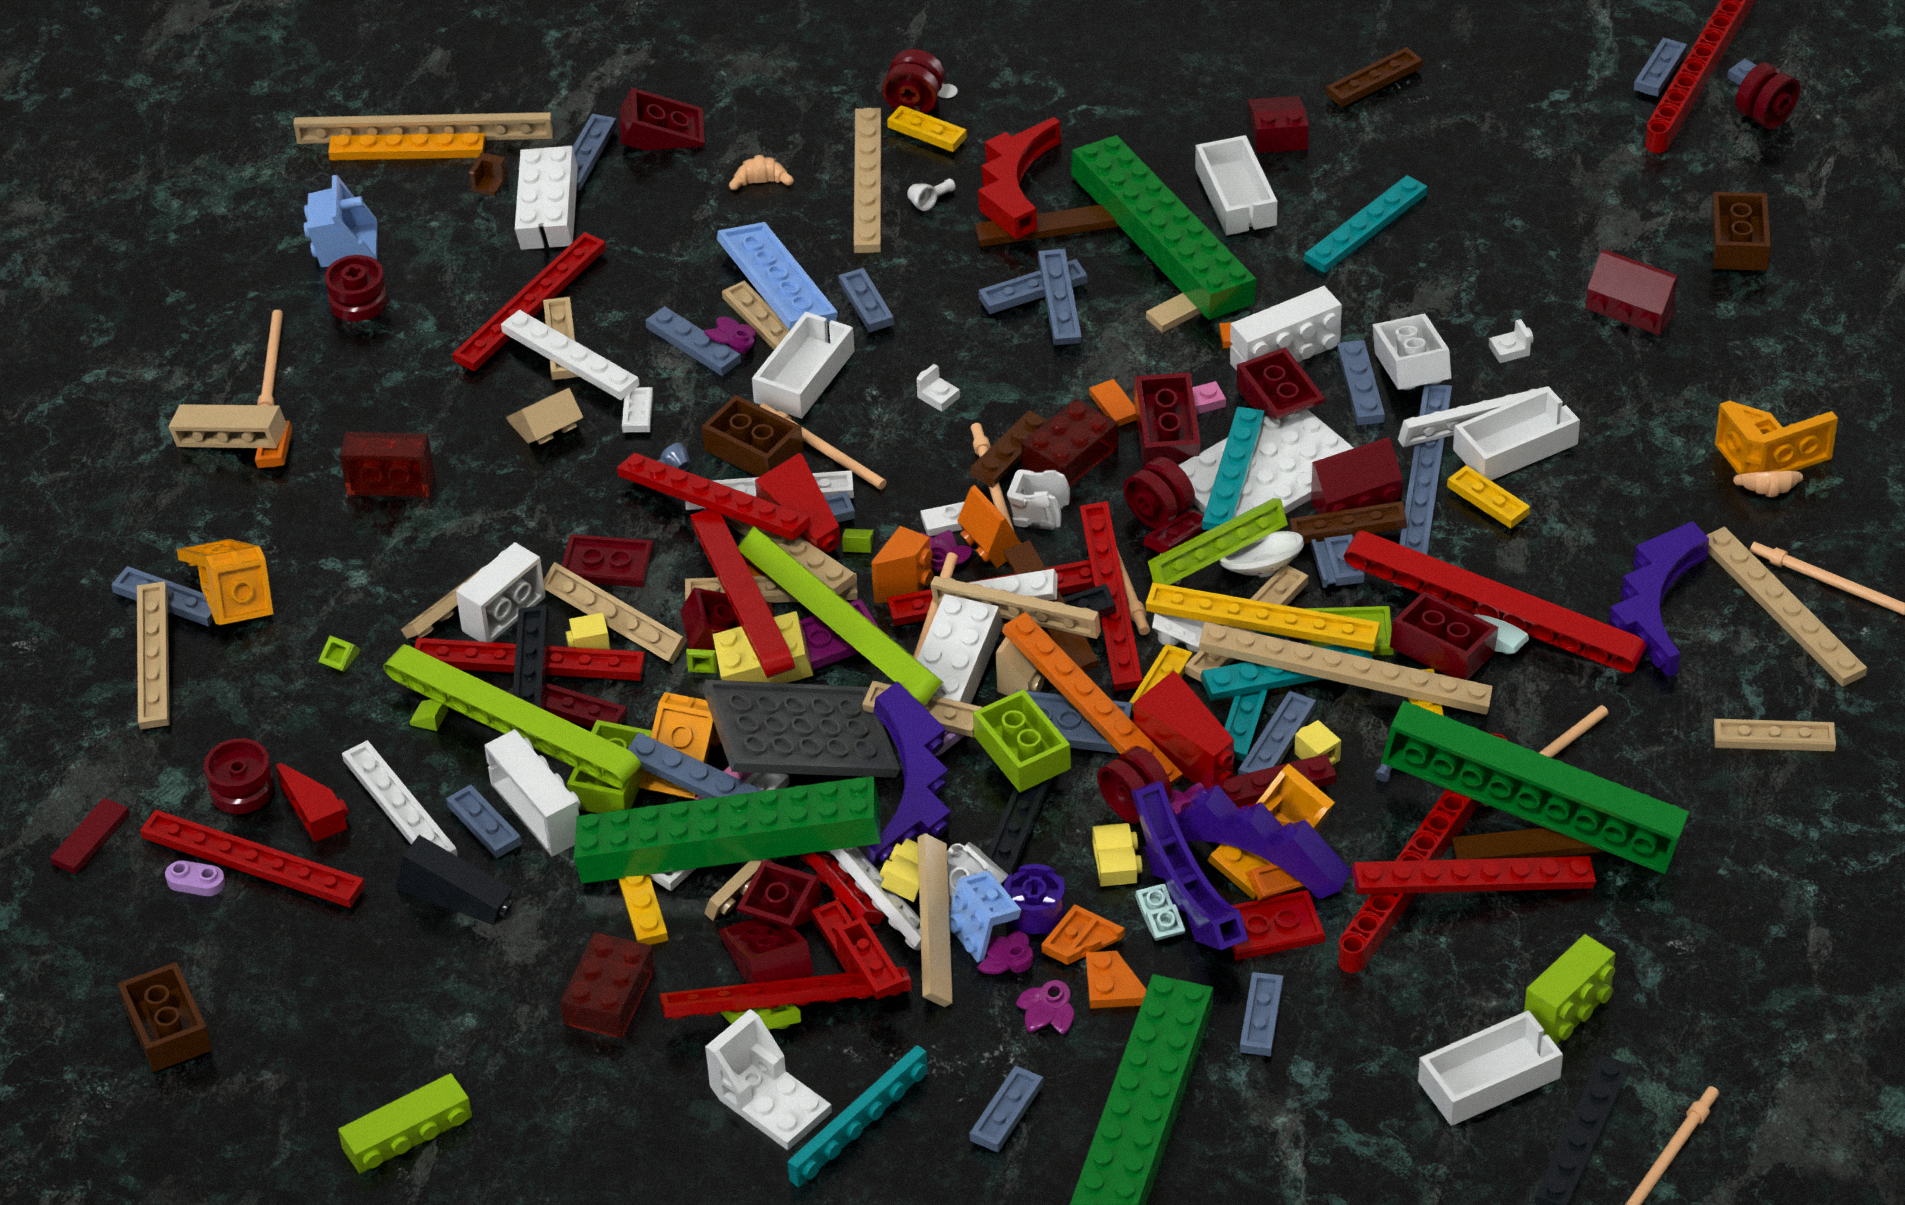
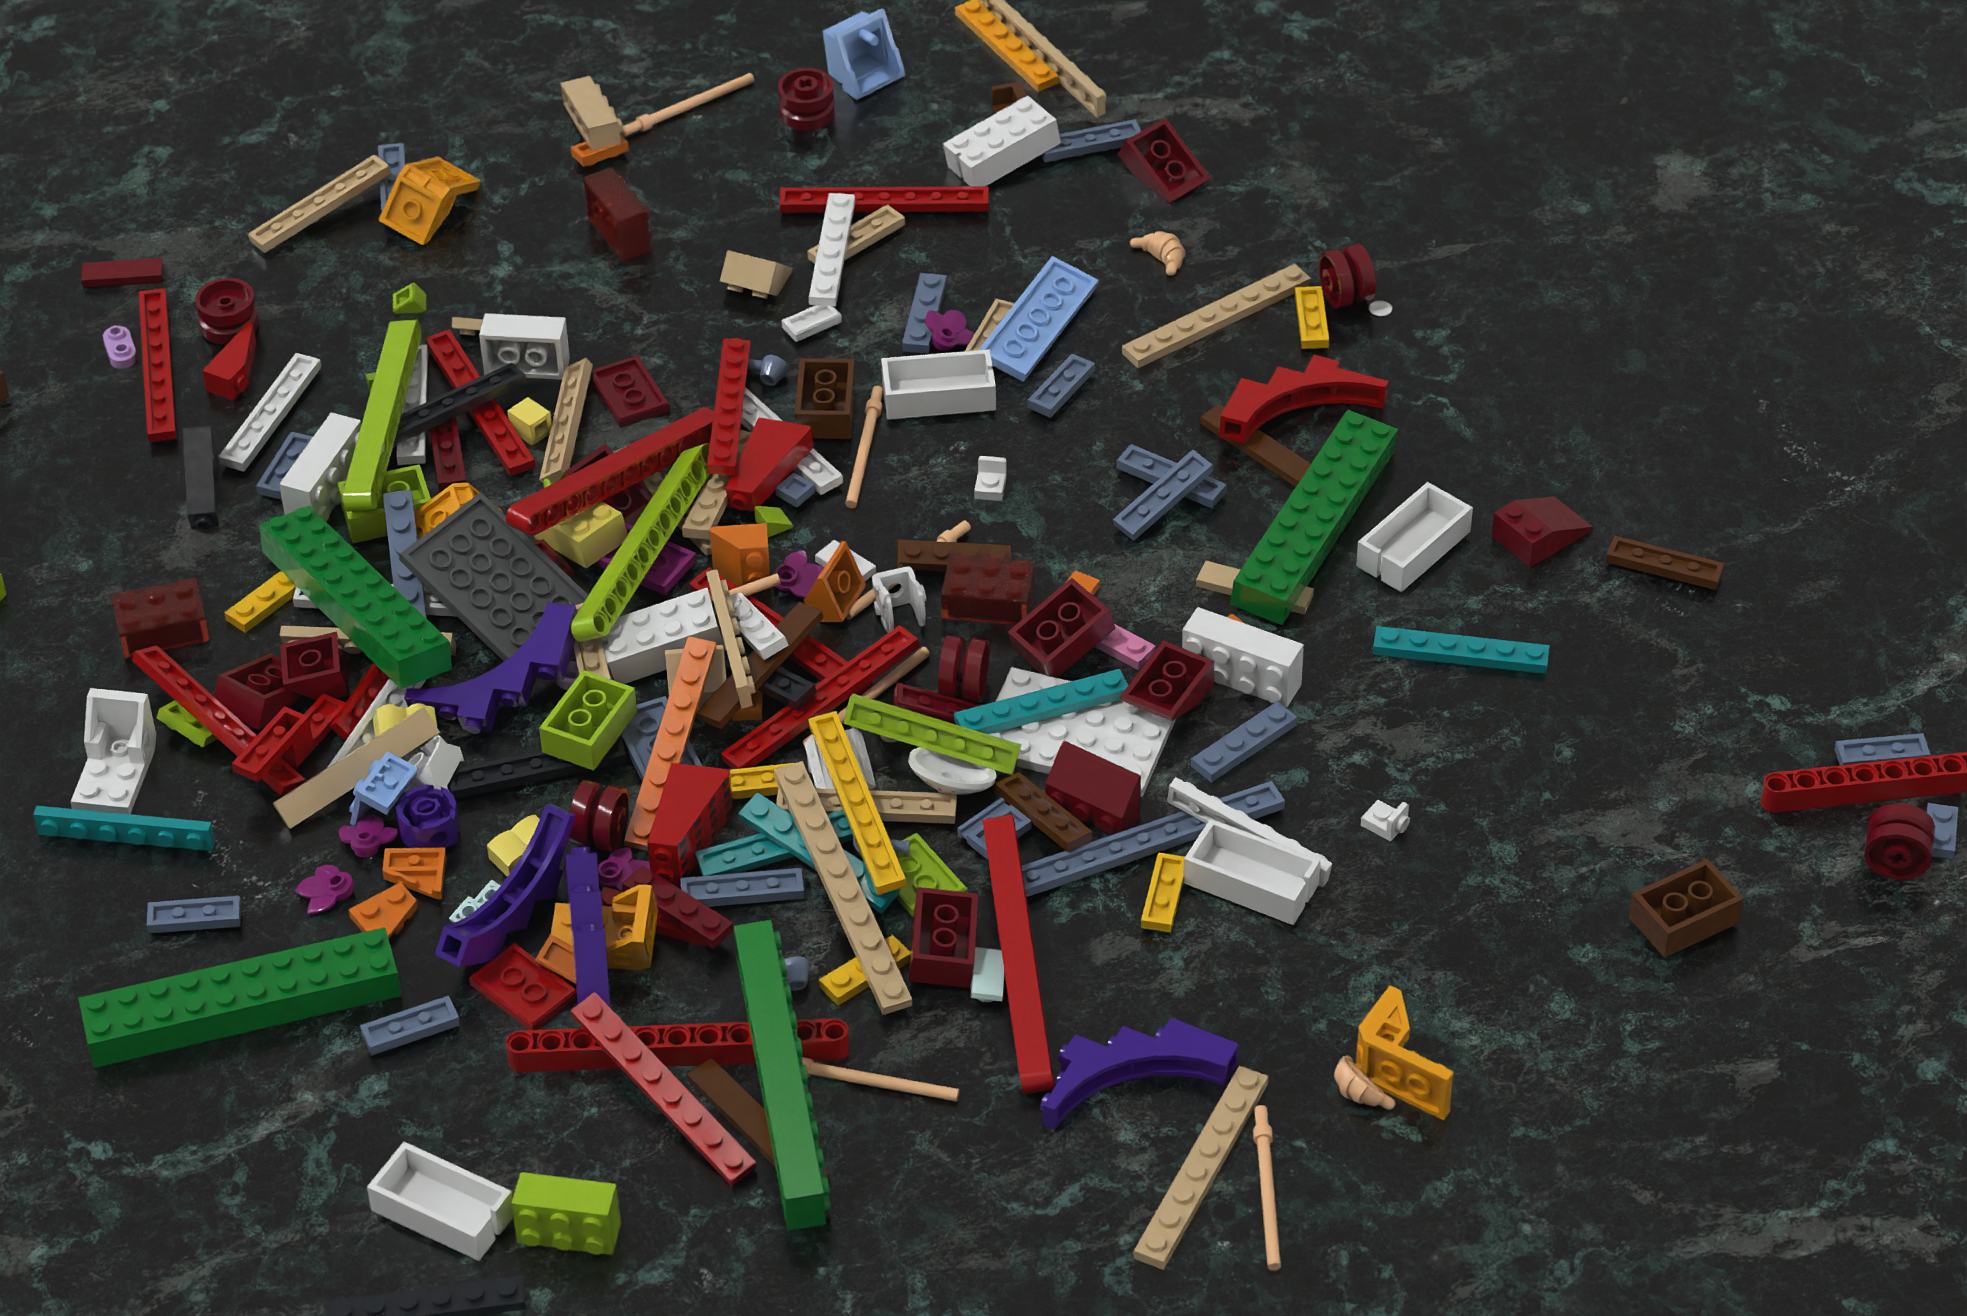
camera: 55 degrees right, 0 degrees up
(925, 195) = (1224, 361): white bar -> none
(1316, 741) = (750, 909): light yellow brick -> none
(1412, 352) = (1292, 749): white brick -> none
(1632, 292) = (1517, 868): dark red slope -> none
(1774, 735) = (1024, 1233): tan tile -> none

